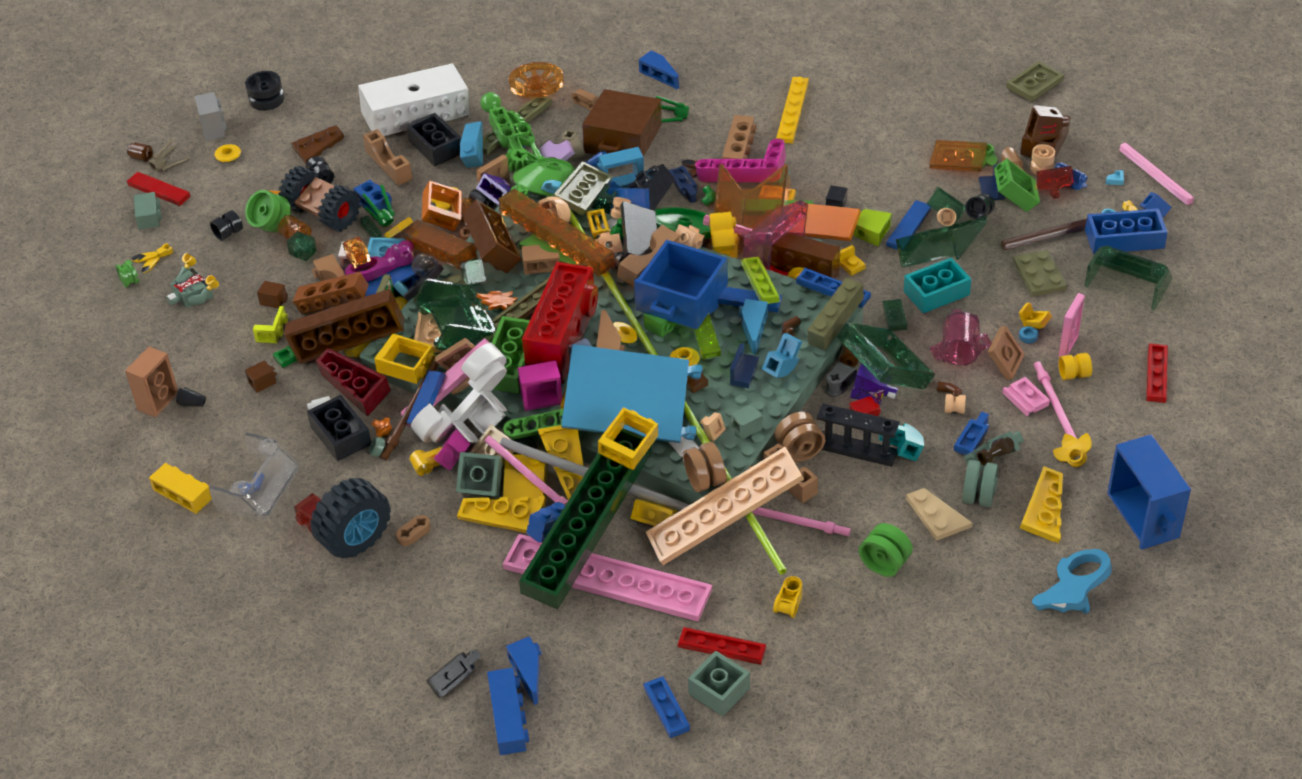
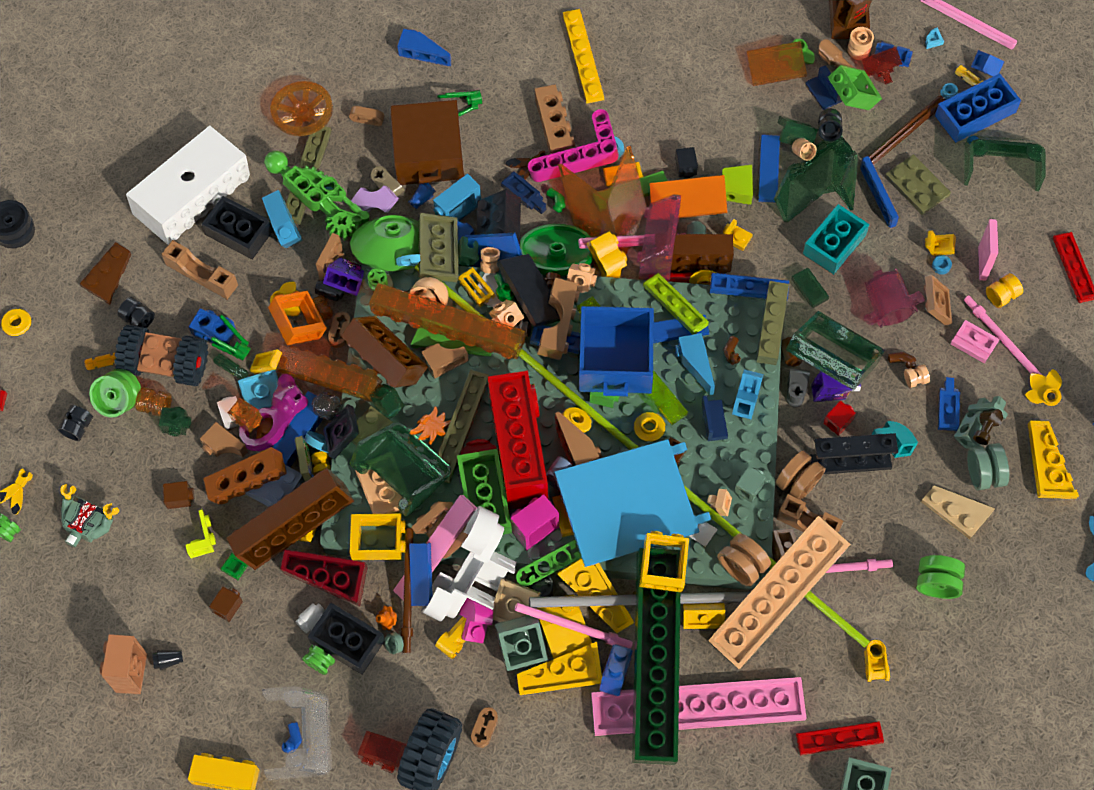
camera: 25 degrees left, 20 degrees up
(307, 435) = (318, 659): none -> bright green wheel
(998, 266) = (879, 192): none -> blue tile

